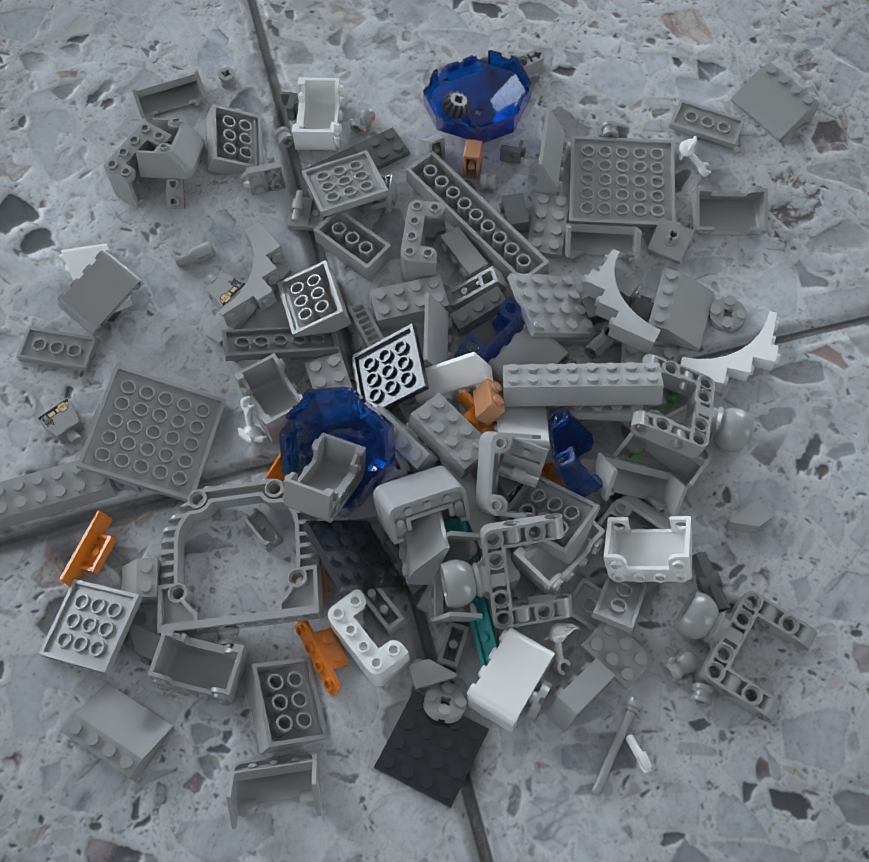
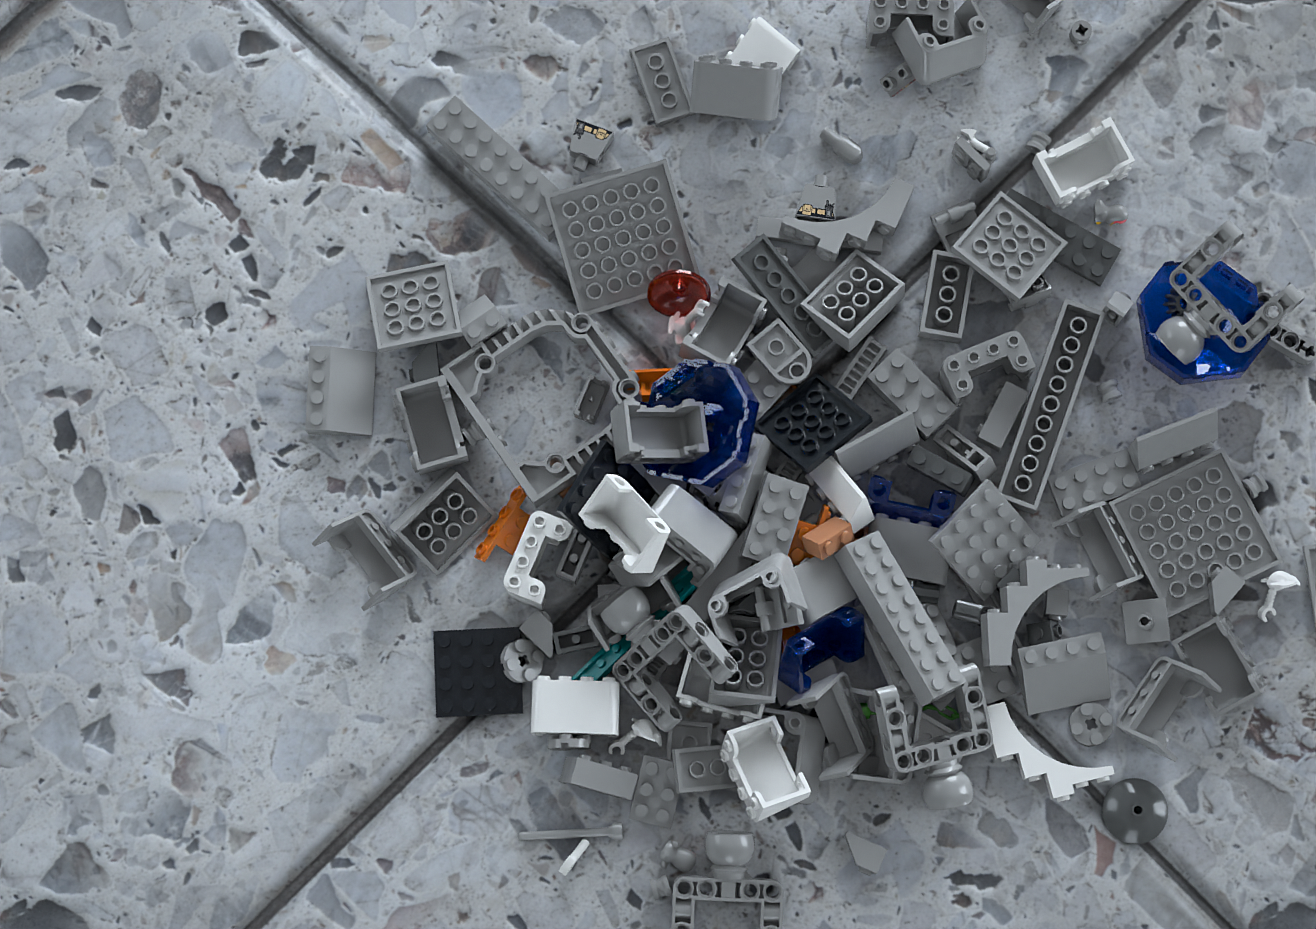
camera: 60 degrees right, 15 degrees up
(91, 551) = (482, 258): orange bracket -> none
(230, 417) = (677, 291): none -> clear red dish
(233, 140) = (1002, 94): light grey slope -> none
(292, 102) = (1083, 127): dark grey bracket -> none
(320, 368) = (780, 352): none -> light grey tile
(387, 533) = (628, 521): none -> white windscreen
(472, 159) = (1124, 359): nougat brick -> none
(481, 105) = (1204, 317): none -> light grey piece
(512, 154) = (1159, 395): dark grey bracket -> none
(515, 211) = (1084, 441): dark grey brick -> none
(675, 180) = (1223, 588): none -> light grey slope
(708, 580) = (775, 843): dark grey piece -> none
(730, 264) = (1157, 700): none -> light grey windscreen
(807, 327) = (1120, 815): none -> dark grey dish

